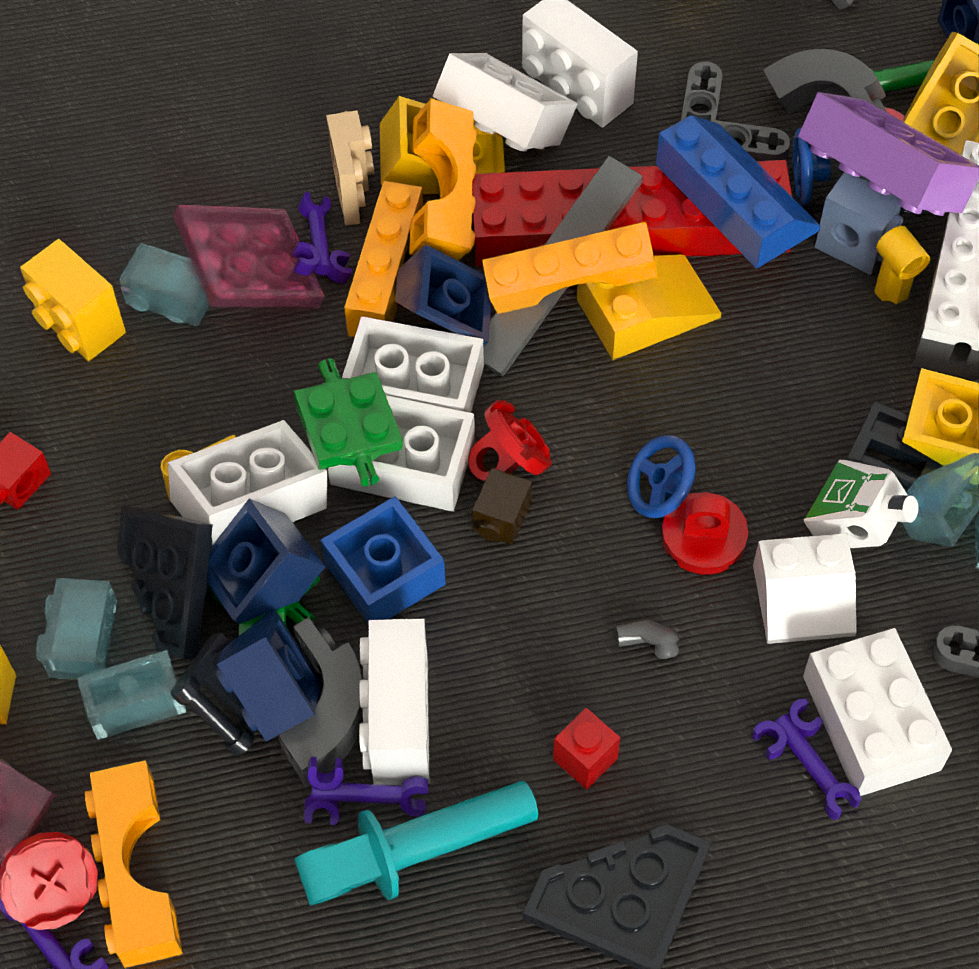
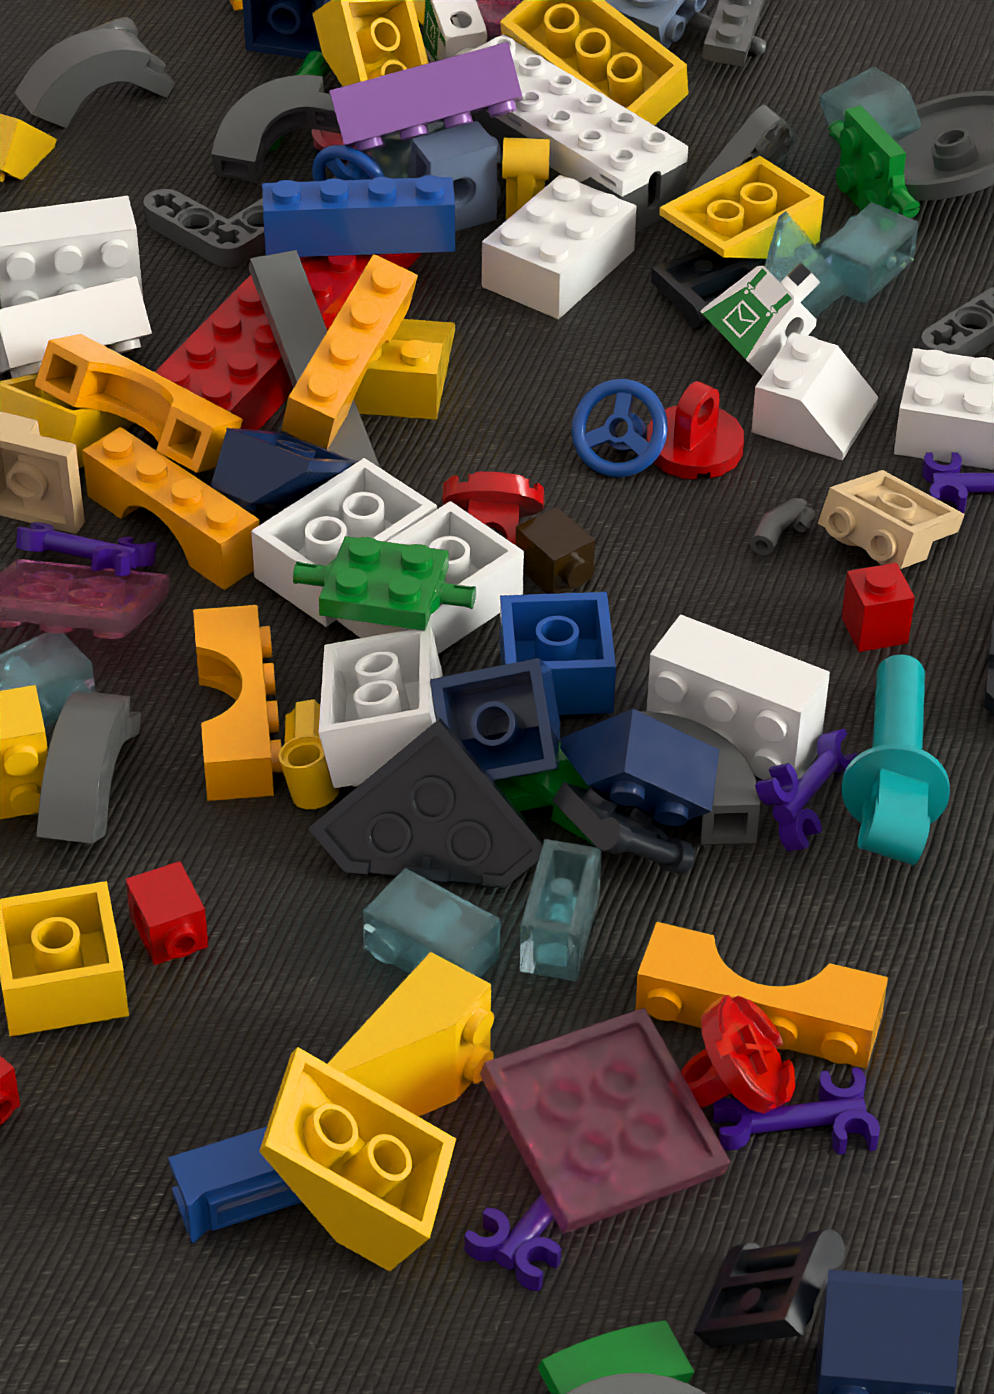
camera: 60 degrees left, 15 degrees down
(104, 343) = (82, 765): none -> dark grey arch
(270, 377) = (237, 742): none -> light orange arch
(700, 708) = (887, 518): none -> tan plate
(850, 329) = (558, 246): none -> white brick

